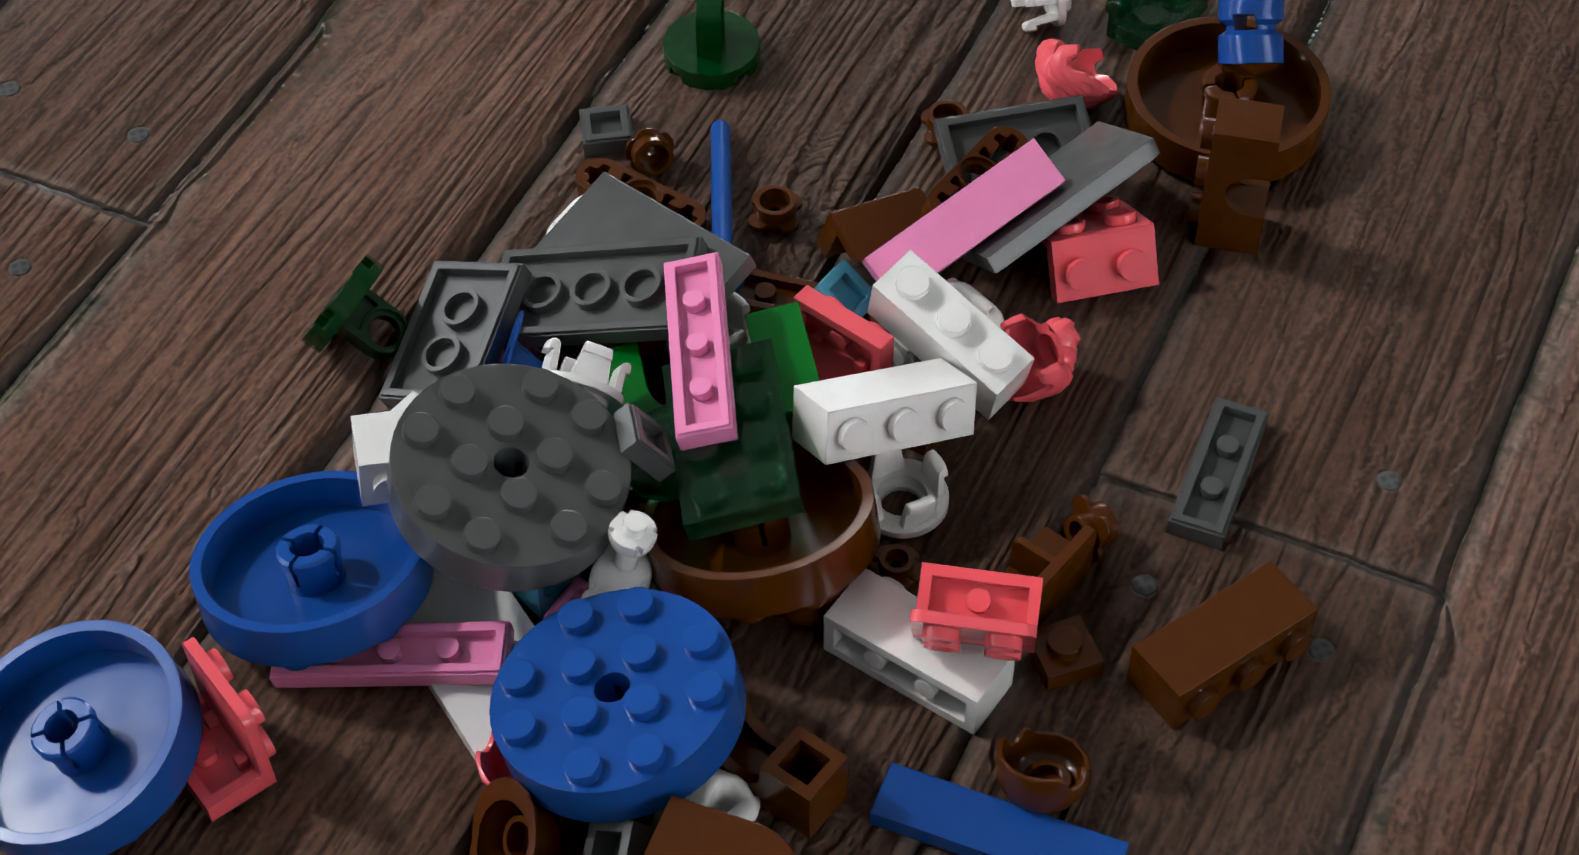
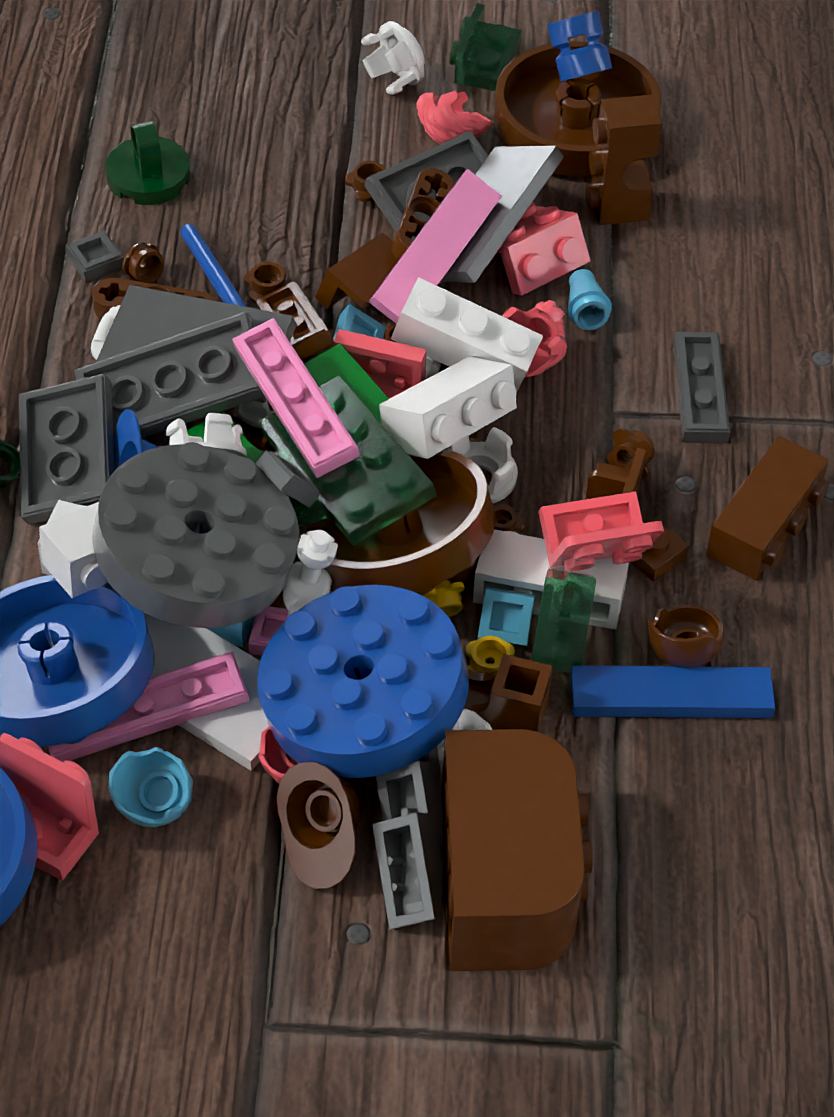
camera: 25 degrees left, 0 degrees up
(346, 748) = (150, 787): none -> medium azure hair
(778, 254) = (310, 333): none -> reddish brown tile
(779, 635) = (447, 597): none -> yellow plate
(807, 711) = (487, 649): none -> yellow plate
(844, 678) = (506, 615): none -> medium azure plate
(893, 705) = (564, 619): none -> clear green bracket
(1127, 332) = (588, 303): none -> medium azure cone

